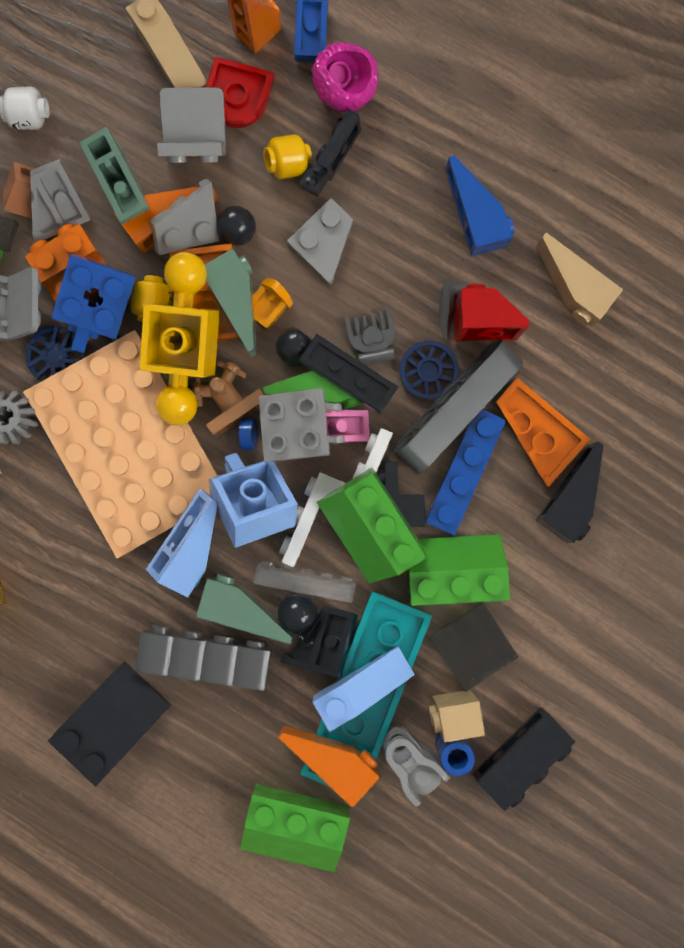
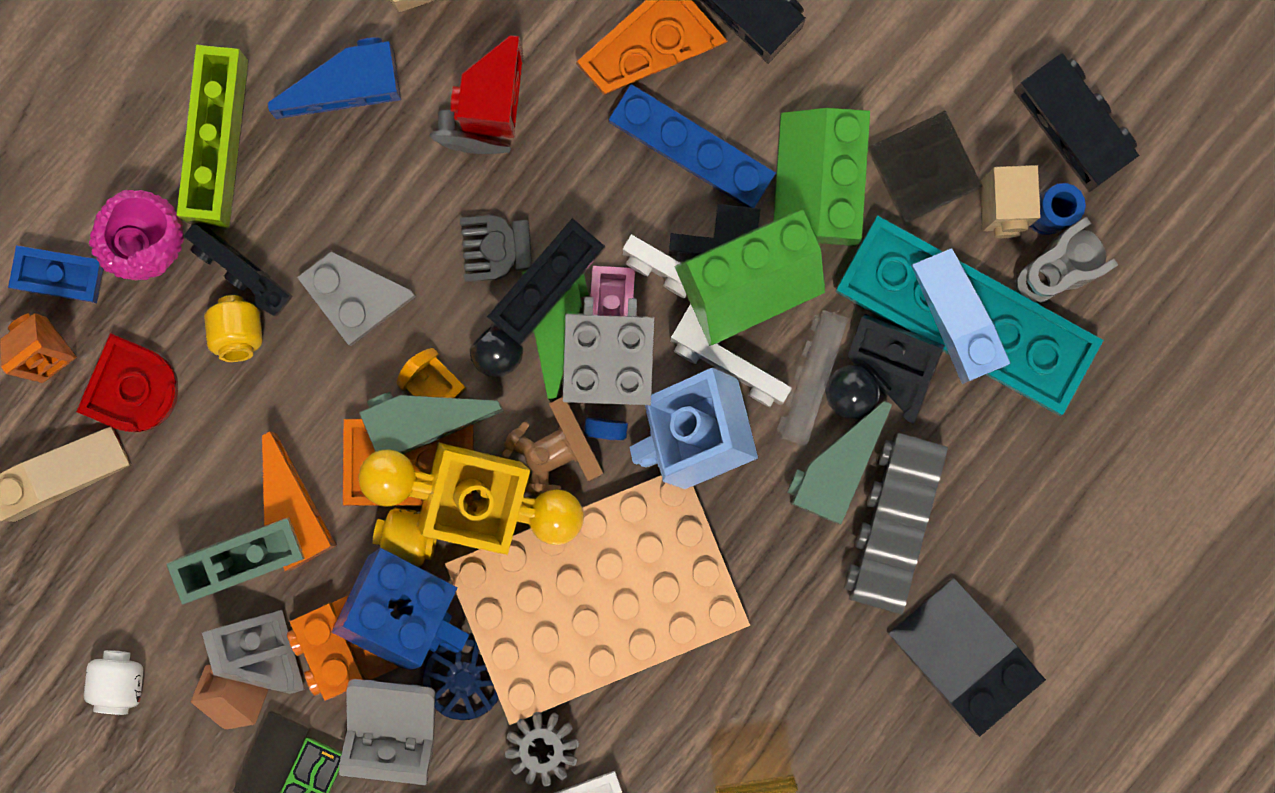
camera: 80 degrees left, 0 degrees up
(186, 549) = (749, 526): light blue slope -> none
(187, 222) = (309, 473): light grey wing -> none
(192, 124) = (173, 451): light grey bracket -> none
(236, 225) = (319, 410): black piece -> none
(295, 828) = (1132, 430): bright green slope -> none
(335, 762) = (1053, 361): orange slope -> none
(425, 120) = (212, 136): none -> lime brick
(428, 369) = (549, 176): dark blue wheel -> none
(458, 406) = (604, 144): dark grey beam -> none

